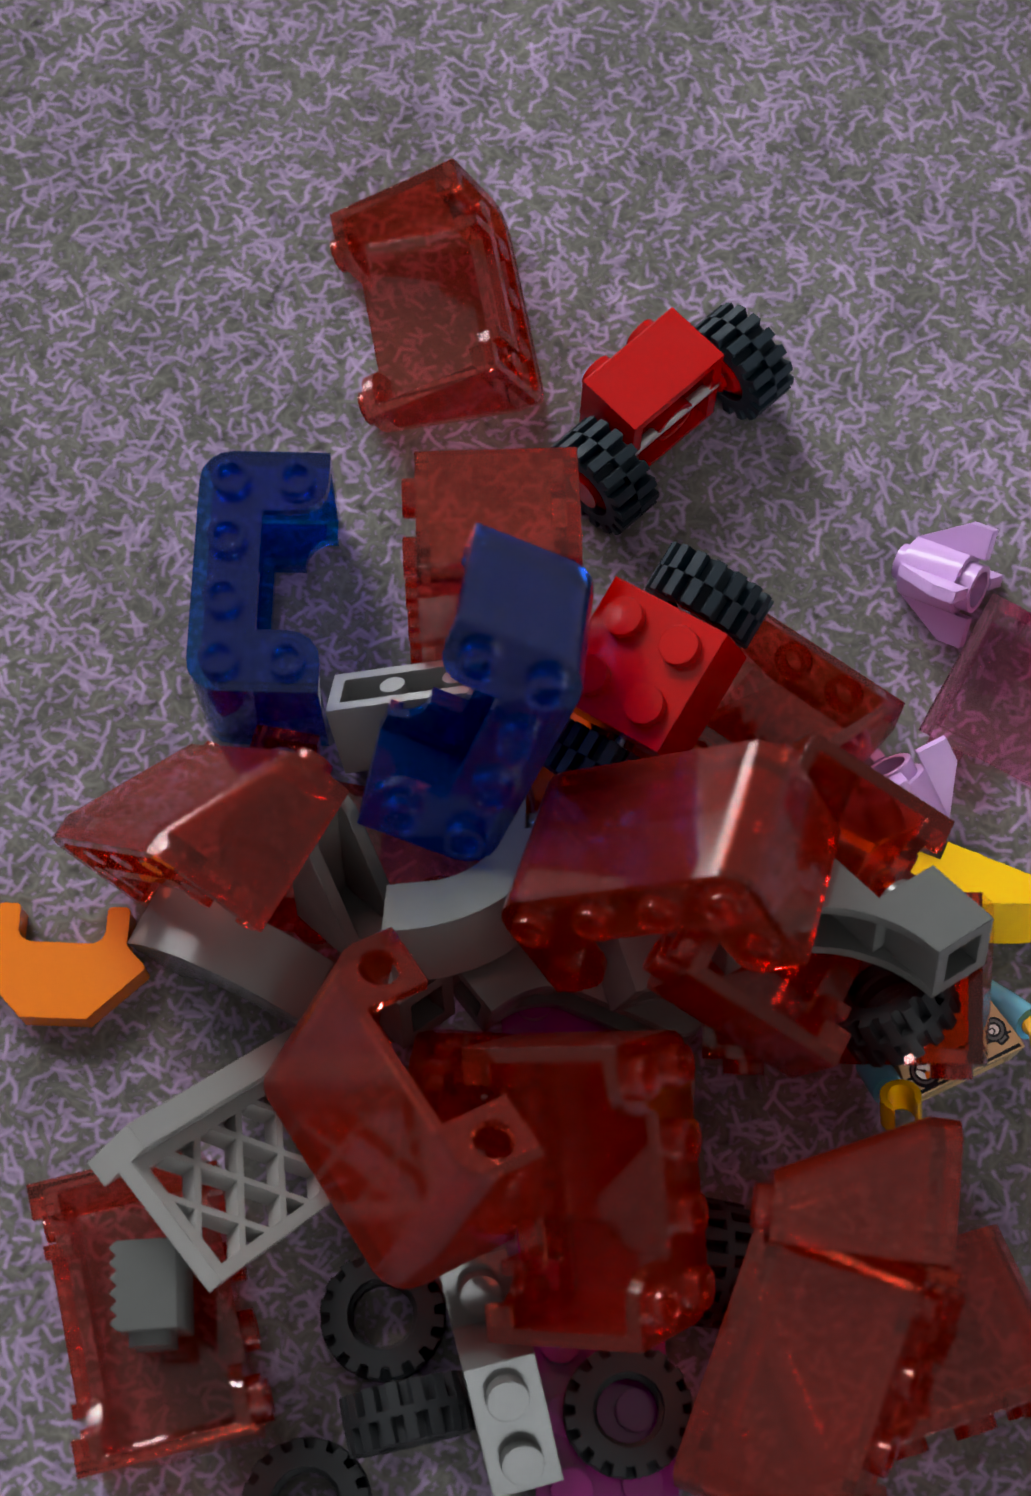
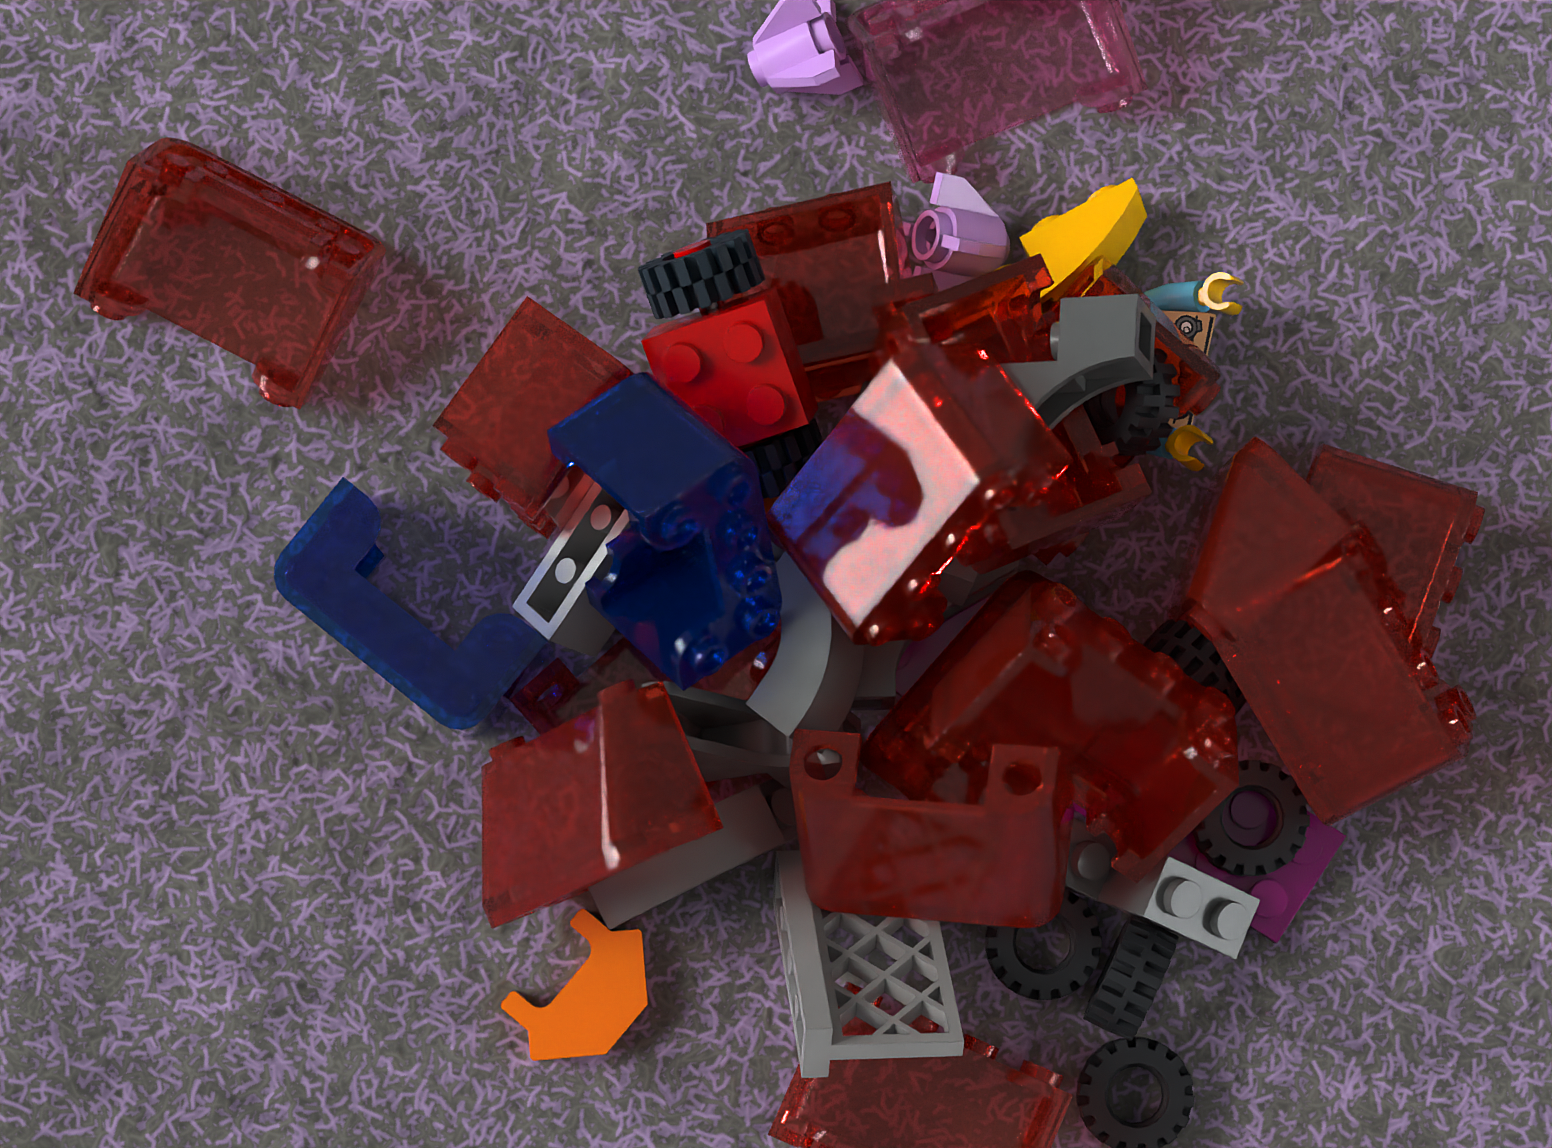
camera: 55 degrees left, 15 degrees up
(151, 1294) = (910, 1099): dark grey brick -> none
(658, 394) = (464, 164): brick -> none

